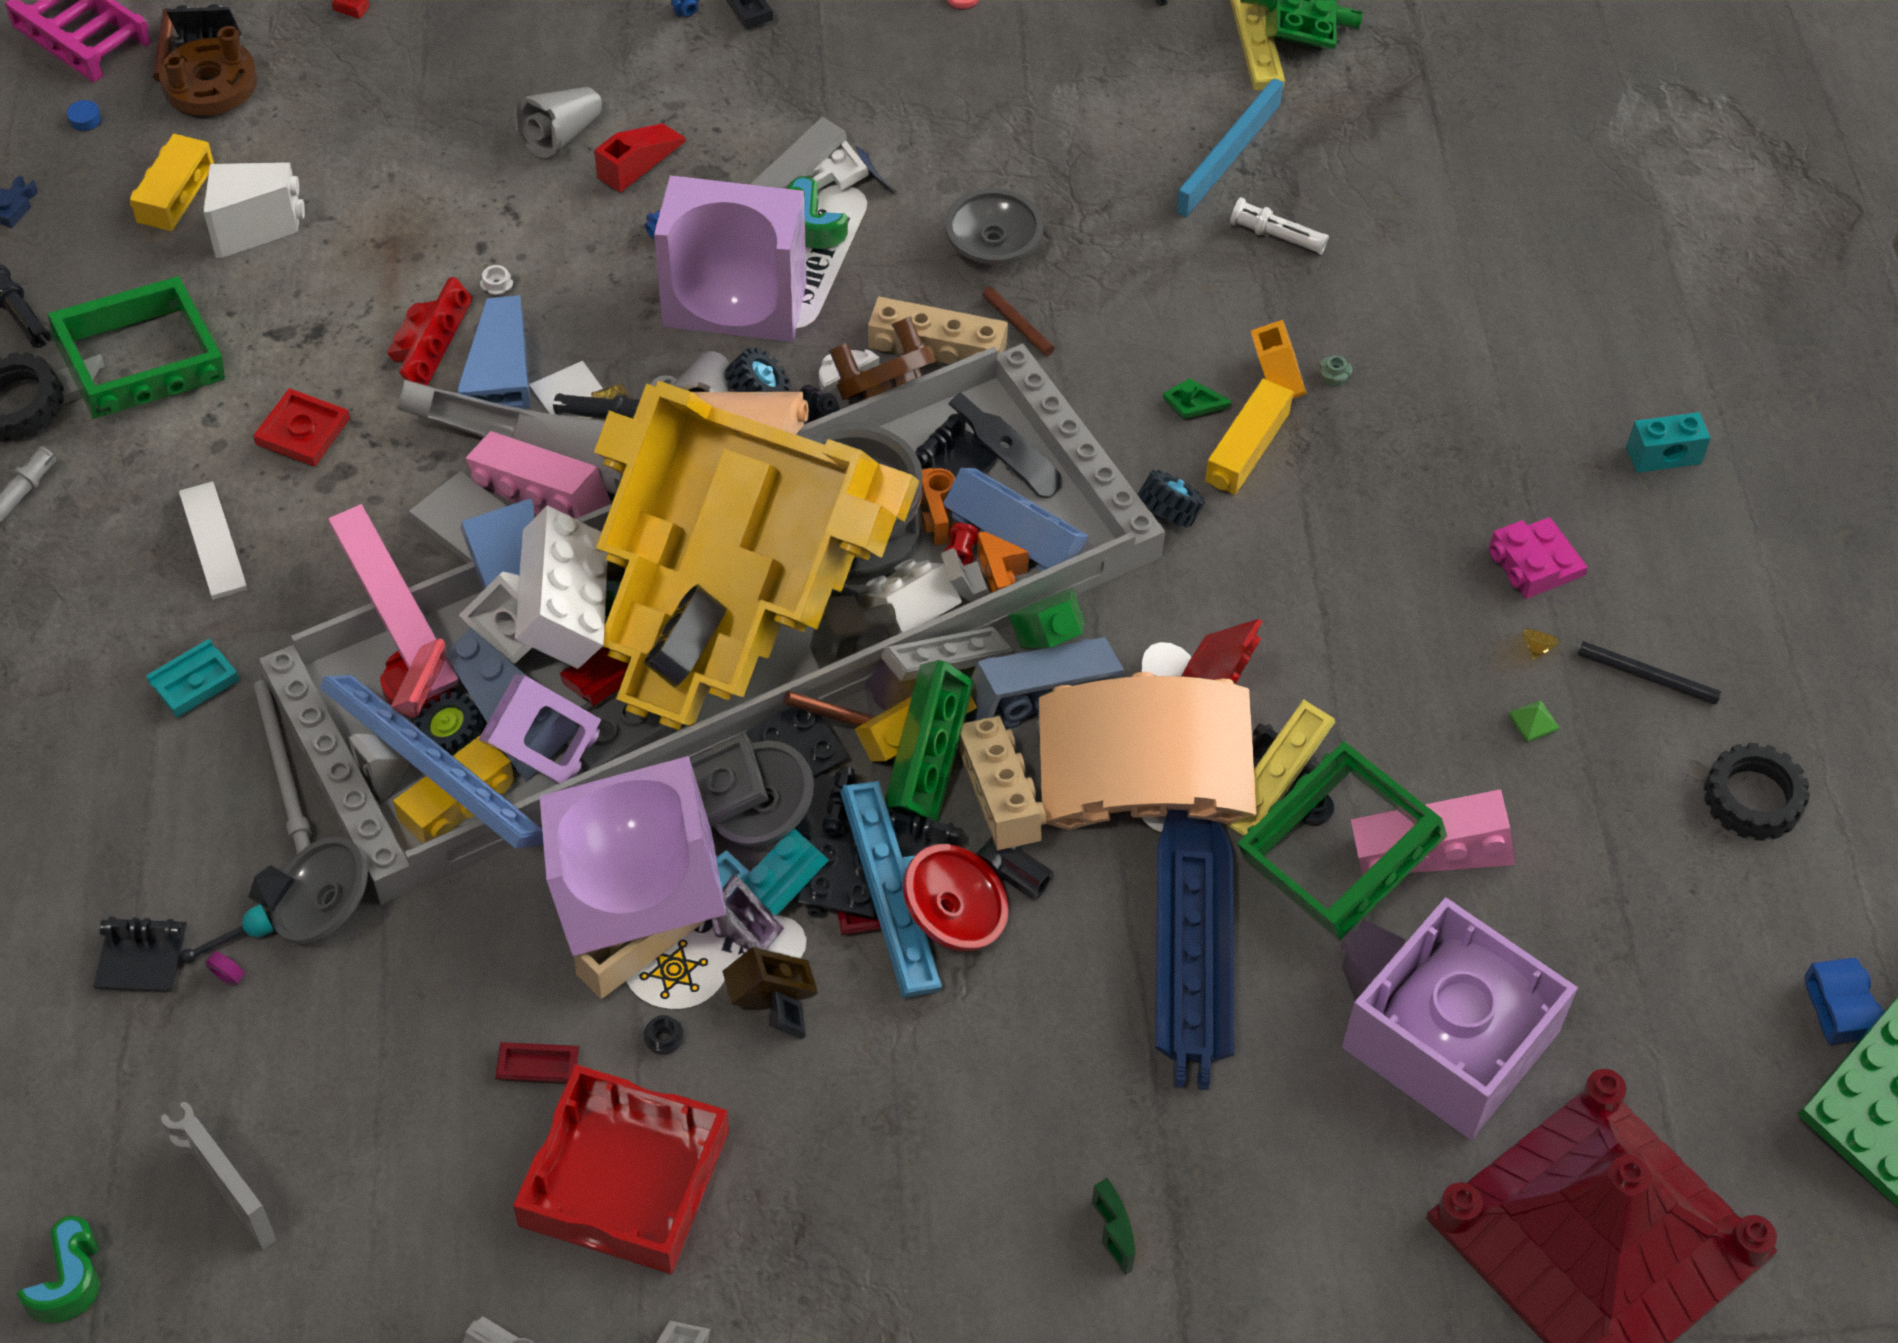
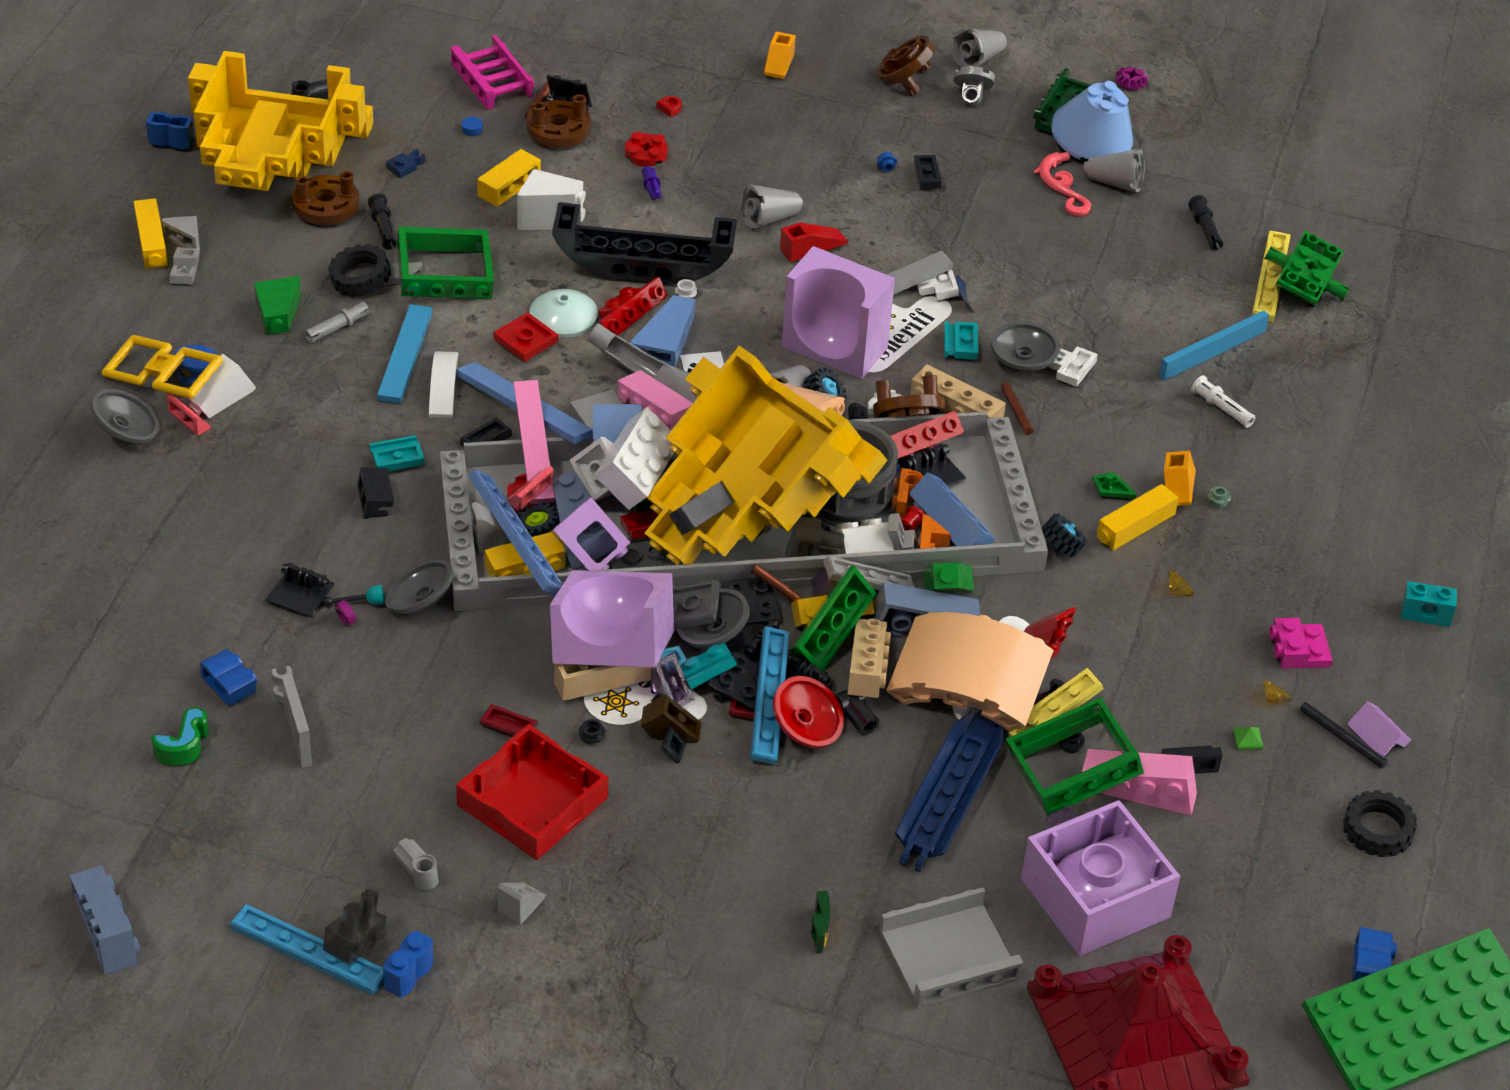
camera: 20 degrees right, 10 degrees down
(91, 1141) = (228, 677): none -> blue brick
(136, 510) = (404, 354): none -> dark azure tile
(186, 752) = (374, 492): none -> black hinge
(270, 887) = (391, 578): black slope -> none
(297, 826) = (423, 552): light grey bar -> none
(309, 603) = (491, 431): none -> black tile
(313, 528) = (503, 391): none -> medium blue tile
(335, 69) = (639, 142): none -> red plate
(339, 368) = (565, 312): none -> light aqua dish
(377, 129) = (651, 182): none -> dark purple axle
(417, 245) = (639, 253): none -> black slope
(824, 229) = (904, 309): green animal -> none
(901, 242) = (961, 340): none -> teal plate
(931, 406) = (927, 435): none -> bracket
(1019, 457) = (975, 481): black piece -> none
(1065, 233) = (1073, 366): none -> white hinge
(1300, 1201) = (948, 948): none -> light grey panel
(1345, 520) = (1179, 585): none -> clear yellow slope
(1481, 775) = (1205, 758): none -> black panel
(1689, 651) = (1377, 729): none -> lavender panel

